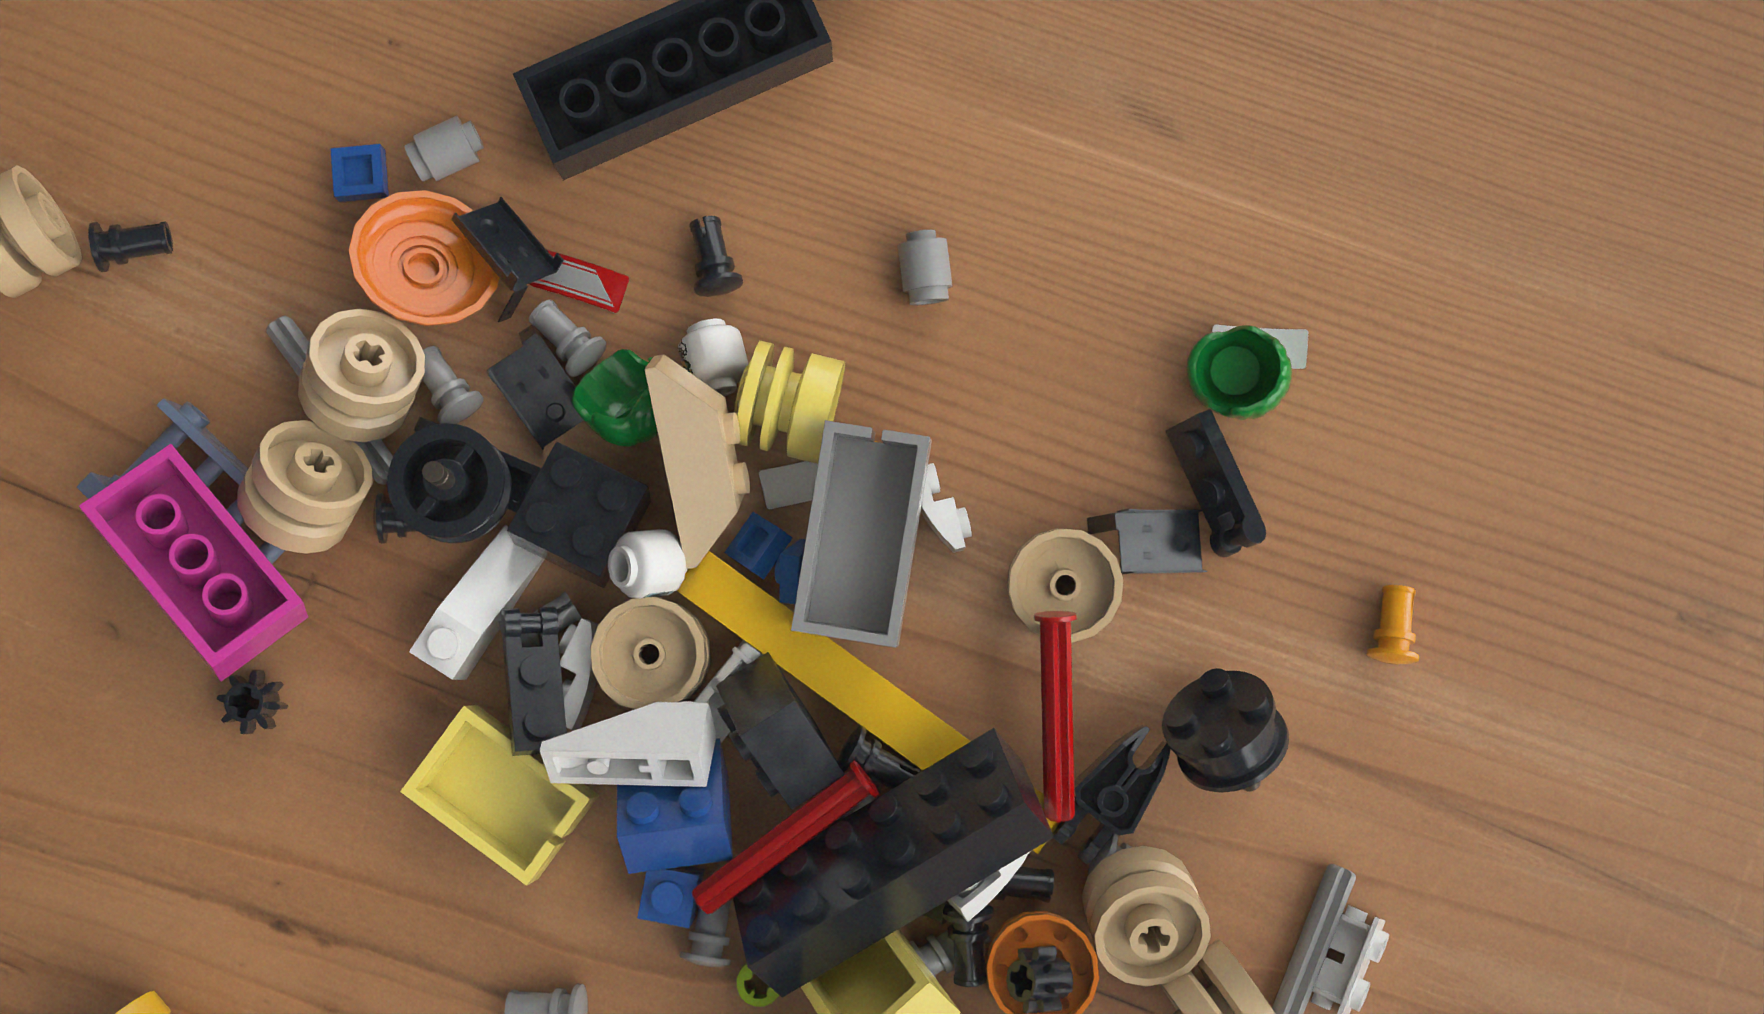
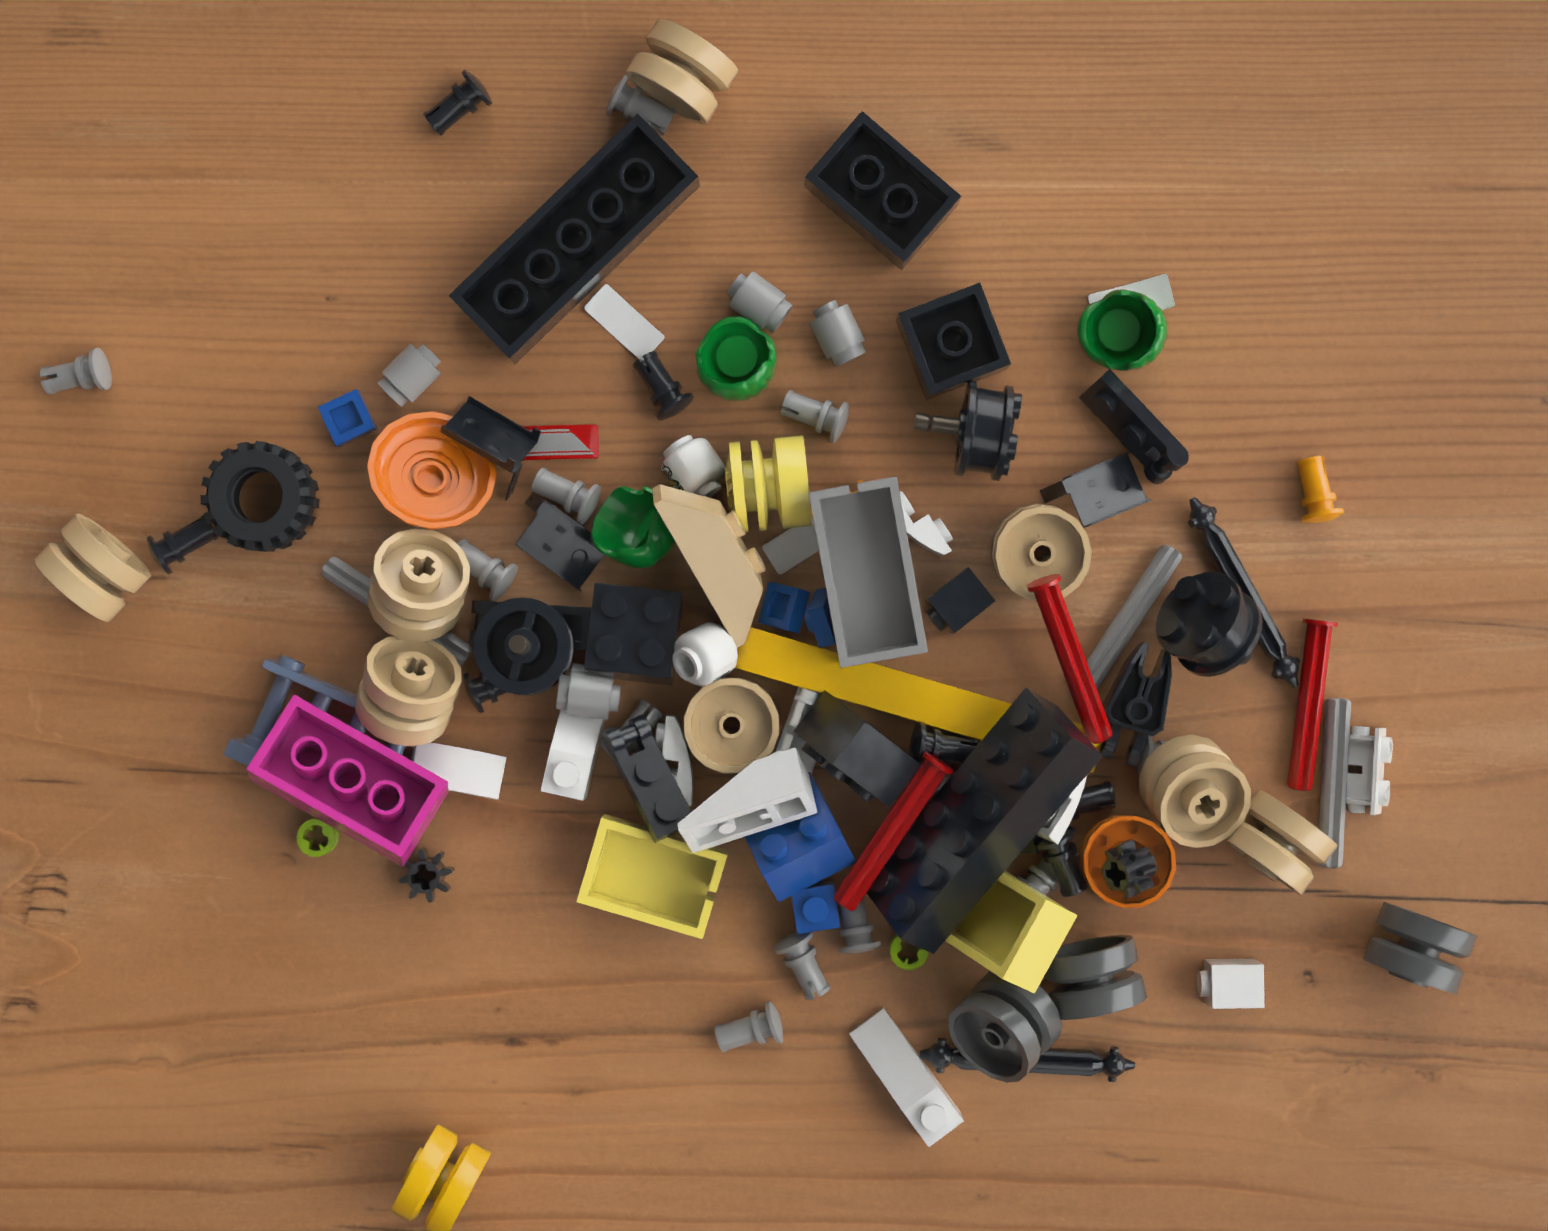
camera: 15 degrees left, 5 degrees up
(98, 25) = (83, 373): none -> light grey pin
(135, 620) = (306, 843): none -> lime bush
(200, 196) = (225, 489): none -> black tyre
(335, 597) = (464, 769): none -> white slope
(502, 563) = (587, 695): none -> light grey brick
(635, 948) = (803, 963): none -> light grey pin
(698, 176) = (624, 322): none -> white sticker
(802, 255) = (736, 359): none -> green piece
(851, 204) = (759, 301): none -> light grey brick
(873, 349) = (816, 414): none -> light grey pin
(953, 607) = (958, 601): none -> black brick
(1027, 129) = (881, 190): none -> black brick
(1045, 425) = (981, 430): none -> black wheel
(1048, 318) = (953, 341): none -> black brick
(1143, 689) = (1132, 612): none -> light grey axle
(1268, 667) = (1227, 562): none -> black wheel
(1308, 863) = (1309, 704): none -> red axle

